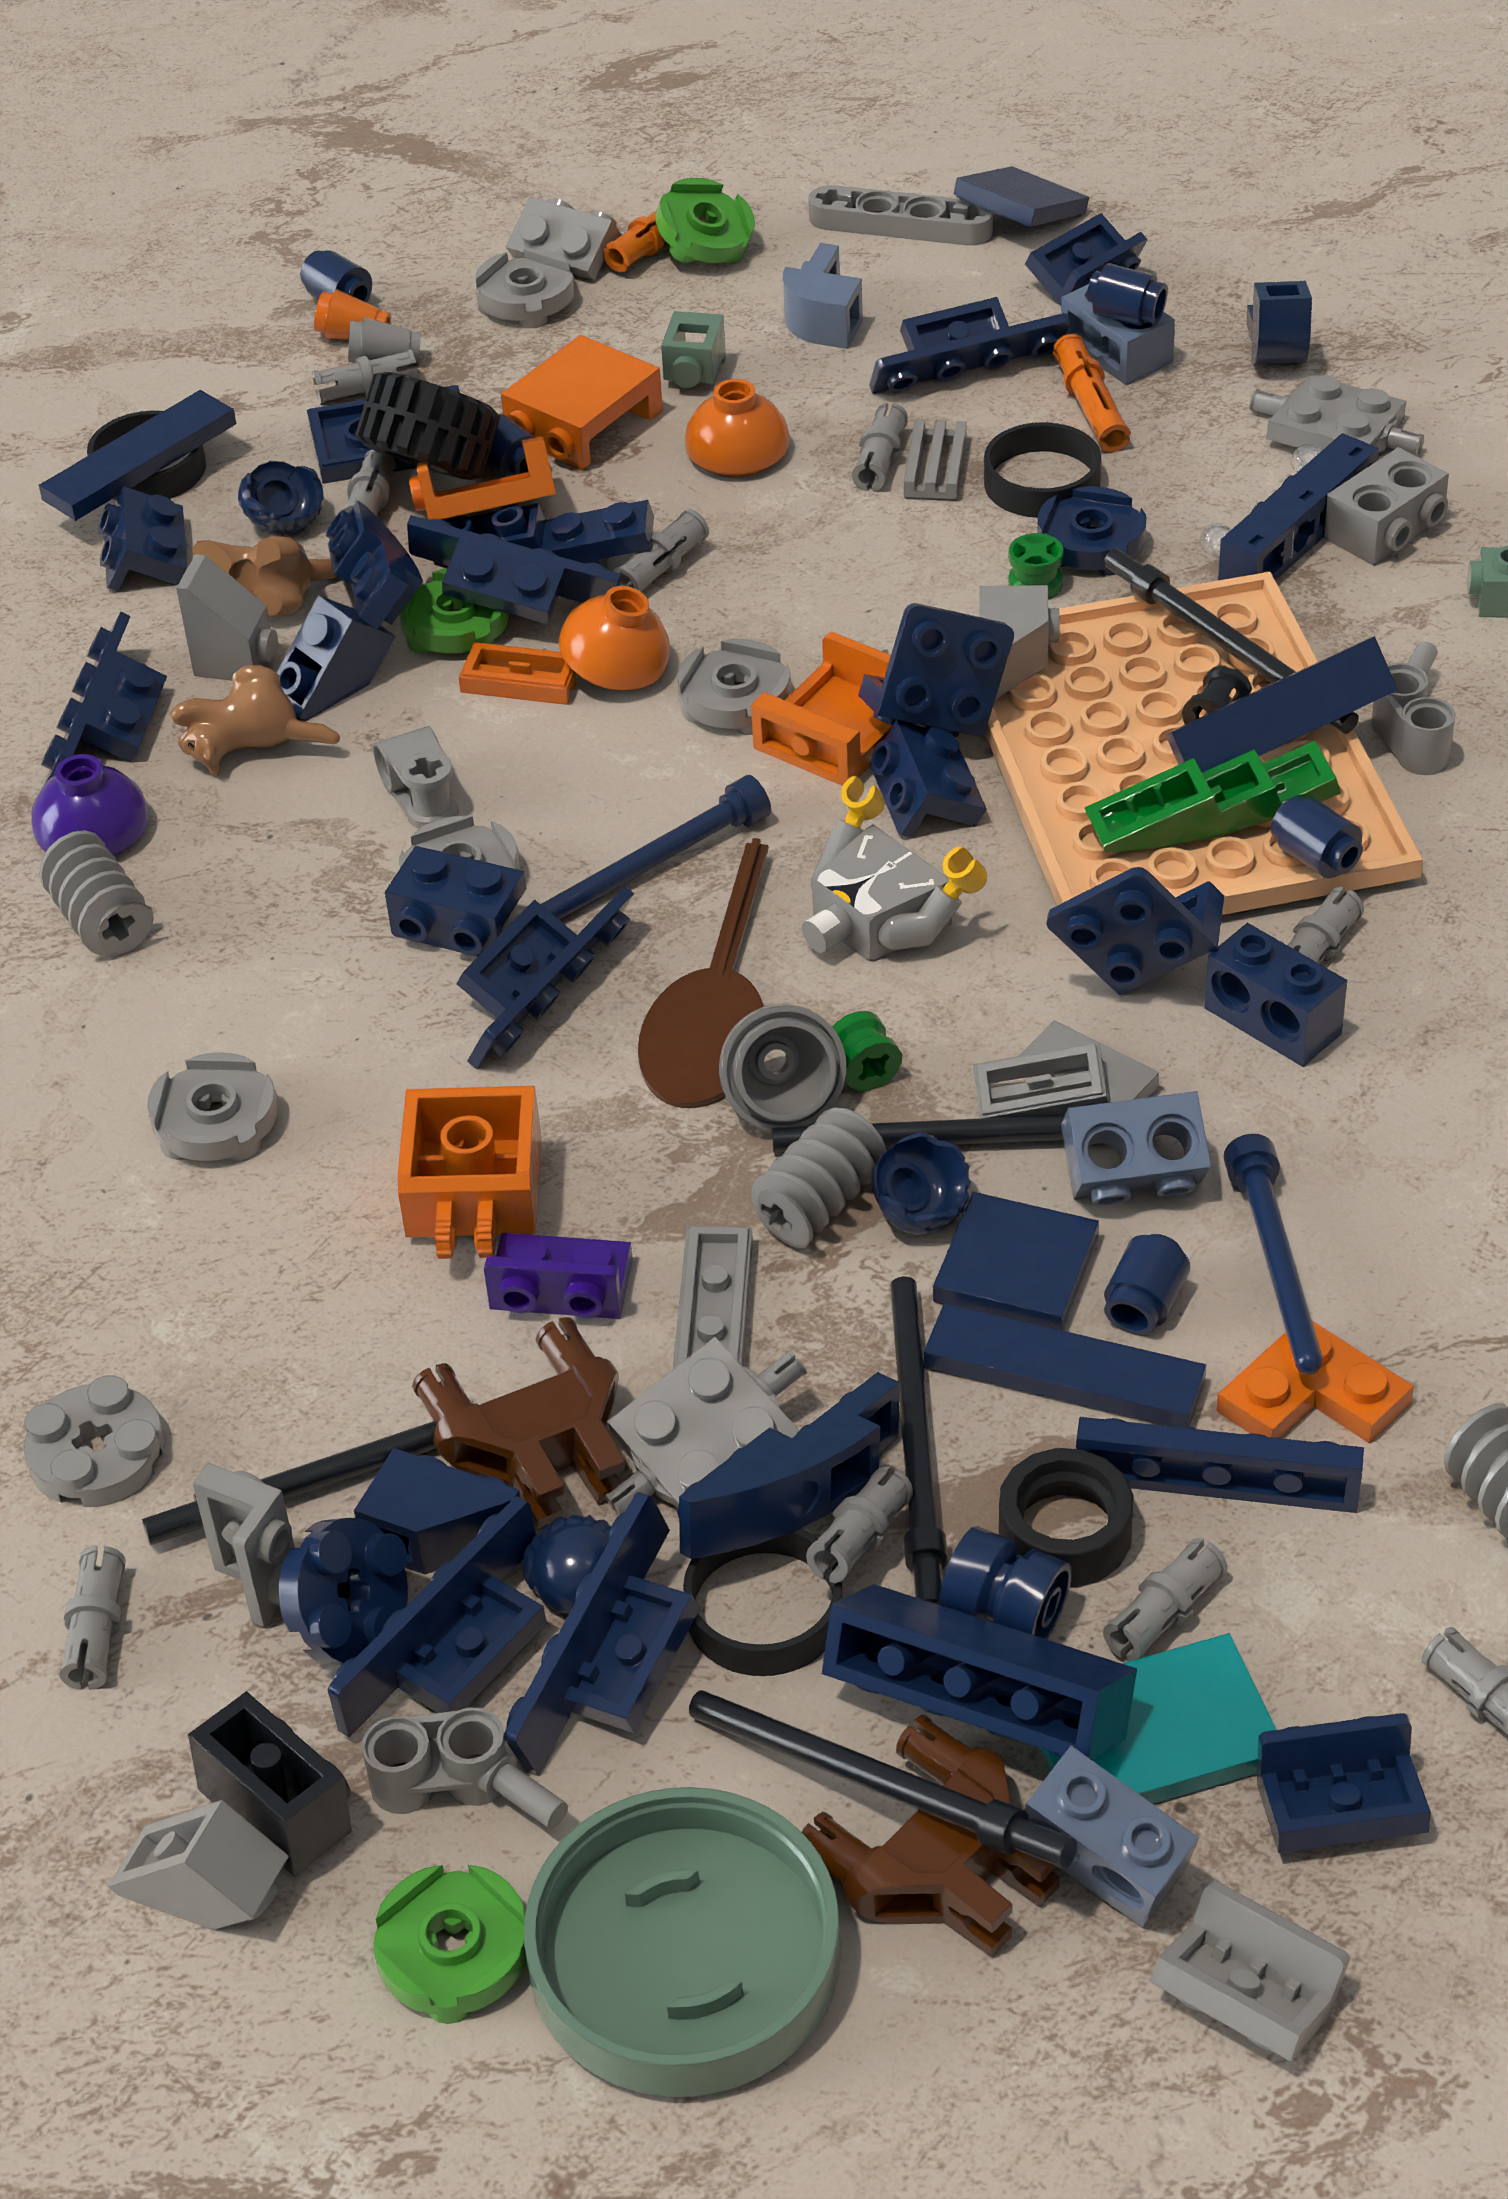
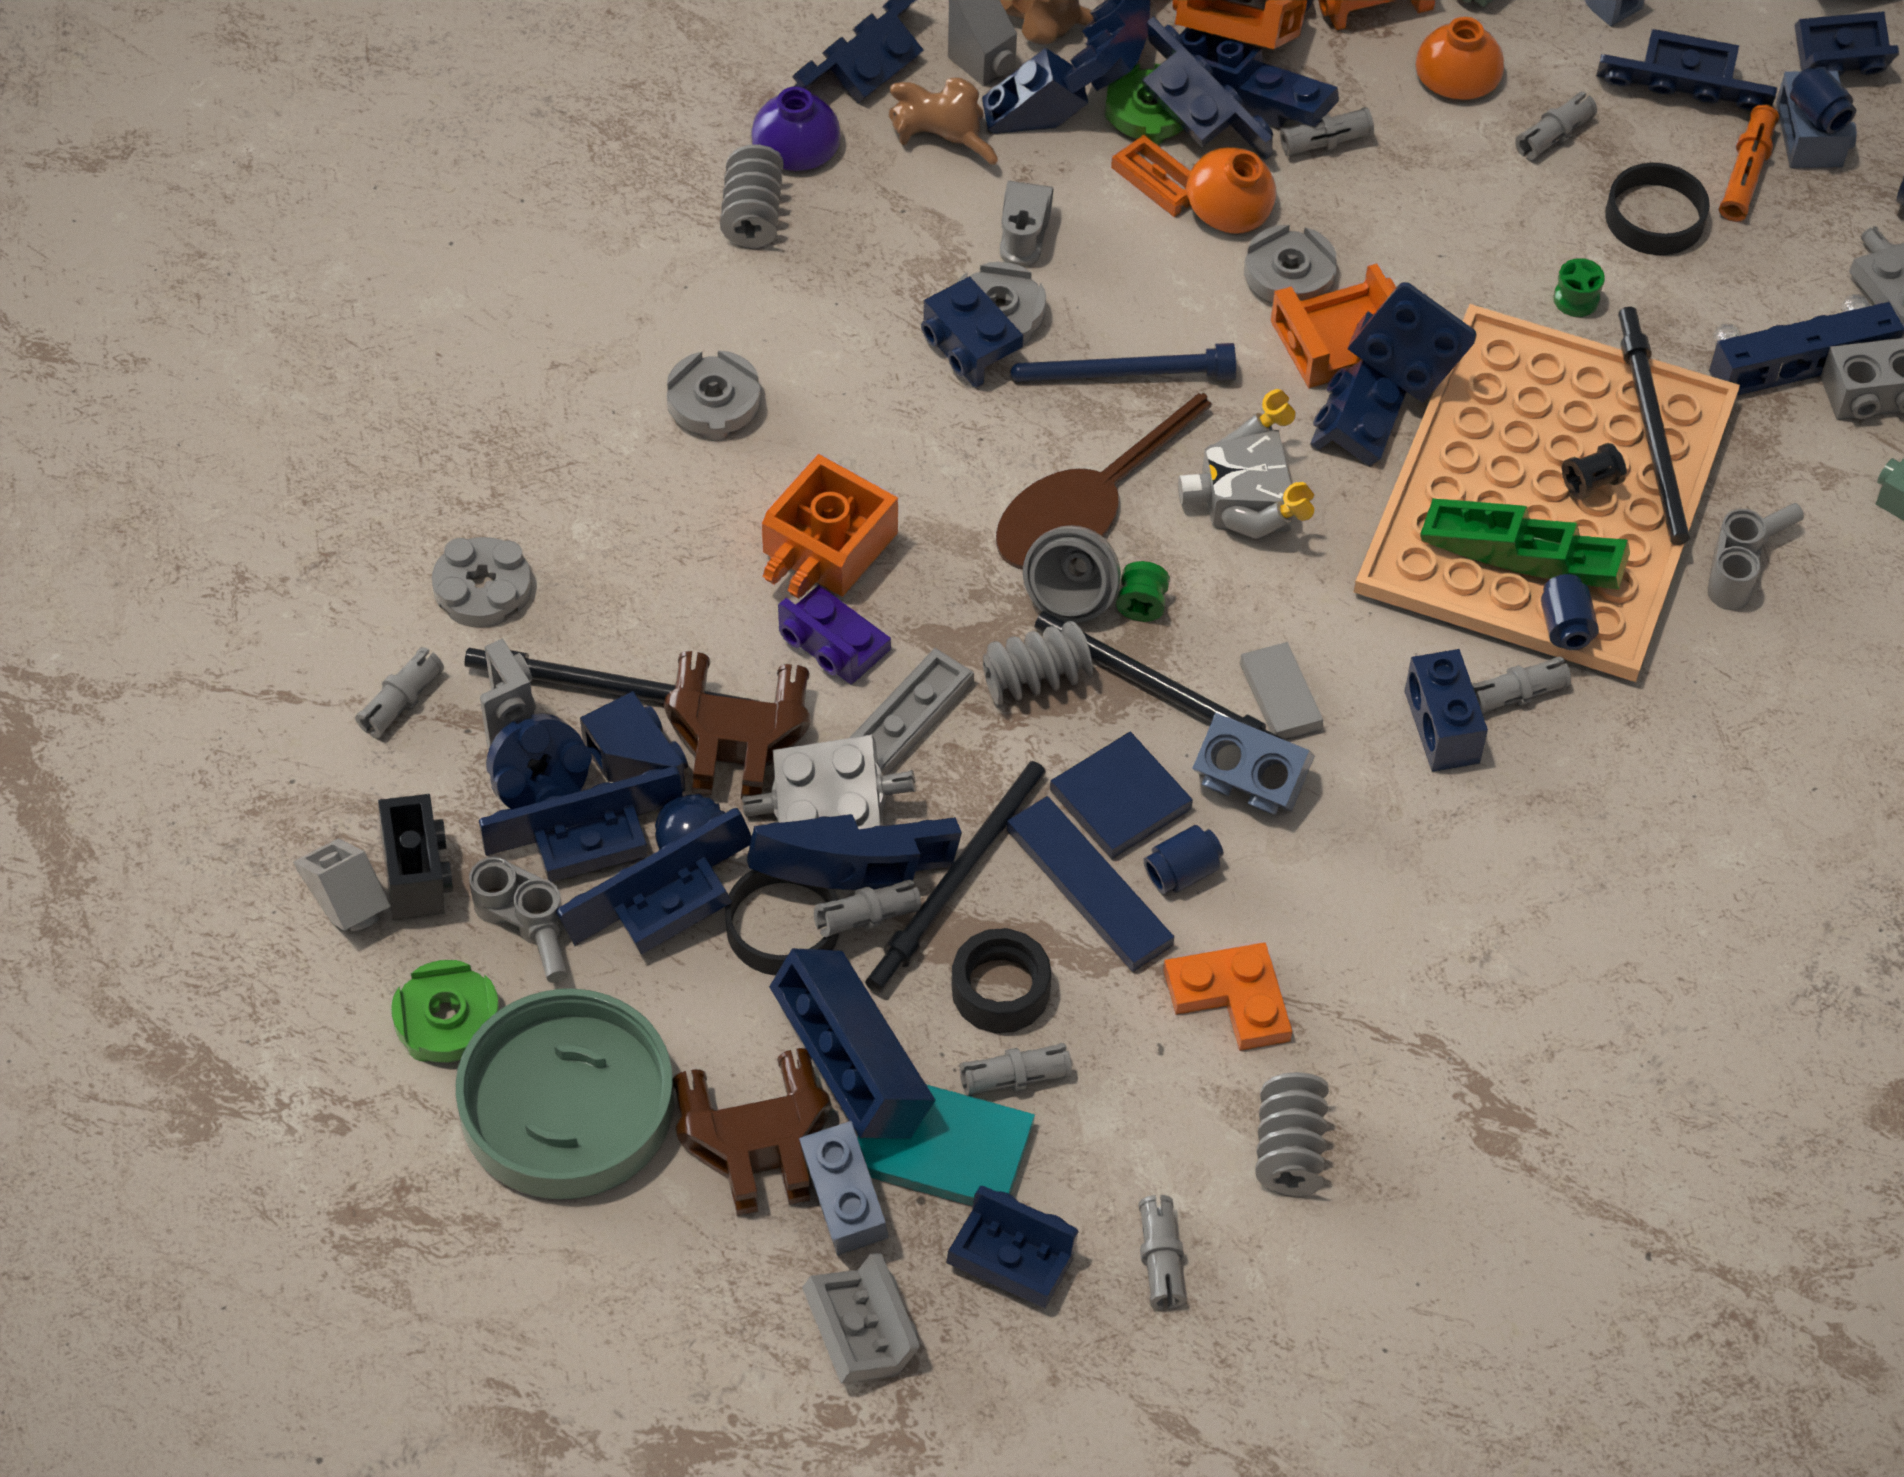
camera: 30 degrees right, 10 degrees up
(527, 962) = (983, 402): dark blue bracket -> none
(921, 1183) = (1097, 707): dark blue hair -> none
(938, 437) = (1606, 137): light grey tile -> none
(996, 1823) = (775, 1137): black bar -> none
(1003, 1587) = (919, 999): dark blue wheel -> none
(1033, 626) = (1505, 337): light grey slope -> none
(1041, 1093) = (1270, 699): light grey tile -> none
(1098, 507) = (1651, 299): dark blue plate -> none
(1137, 928) = (1377, 617): dark blue bracket -> none
(1228, 1464) = (1113, 999): dark blue plate -> none
(1254, 1168) = (1323, 823): dark blue piece -> none
(1286, 707) = (1629, 503): dark blue tile -> none

